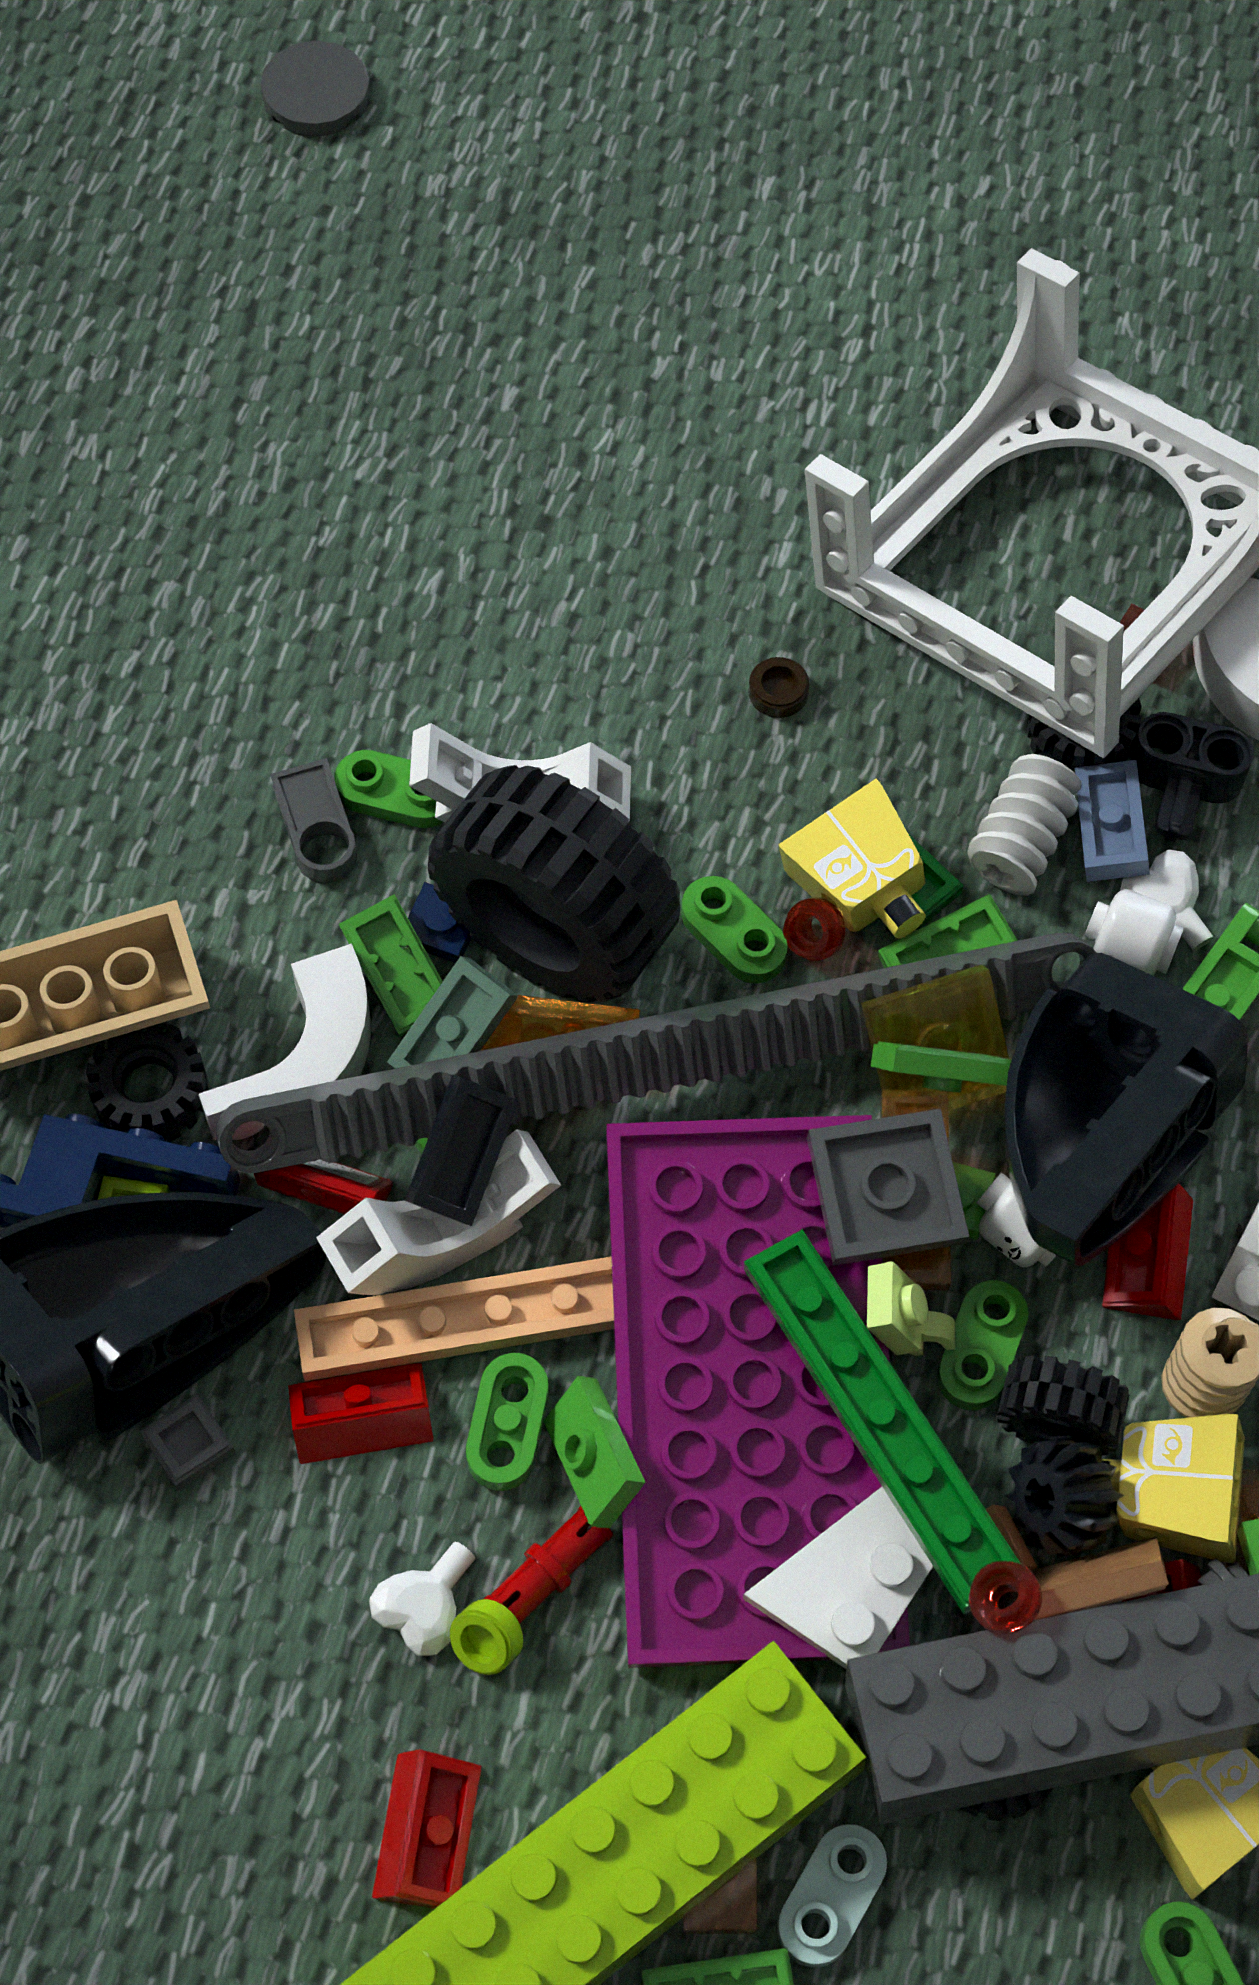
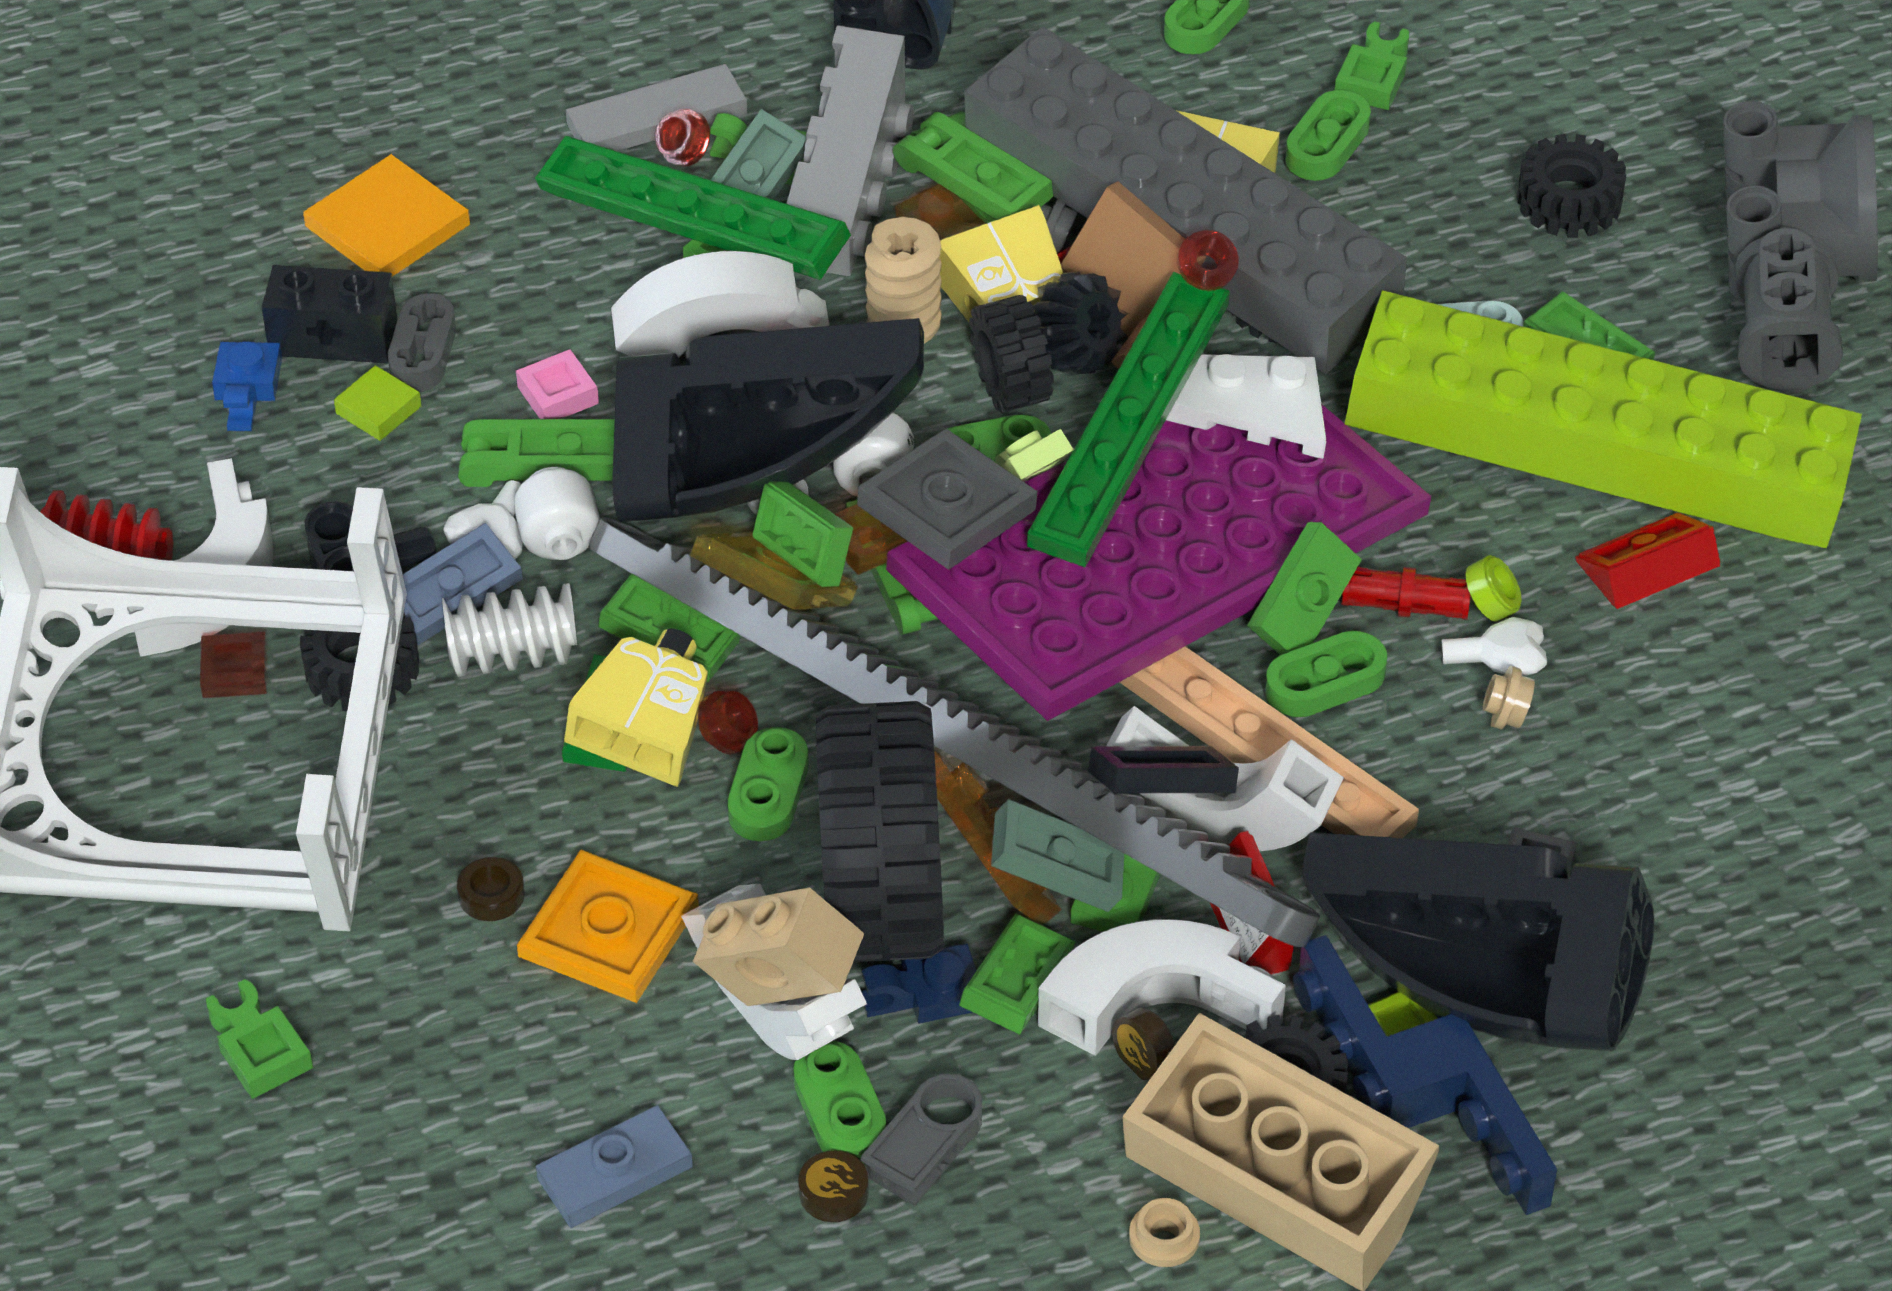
camera: 125 degrees left, 15 degrees down
(94, 900) = (1169, 1216): none -> tan plate
(262, 1008) = (1142, 1041): none -> dark brown tile
(326, 735) = (833, 1186): none -> dark brown tile
(360, 1413) = (1409, 773): red slope -> none
(360, 1550) = (1508, 698): none -> tan plate
(461, 620) = (614, 1166): none -> sand blue plate
(492, 731) = (778, 947): none -> tan brick
(682, 741) = (607, 926): none -> light orange tile
(739, 465) = (256, 1045): none -> bright green plate

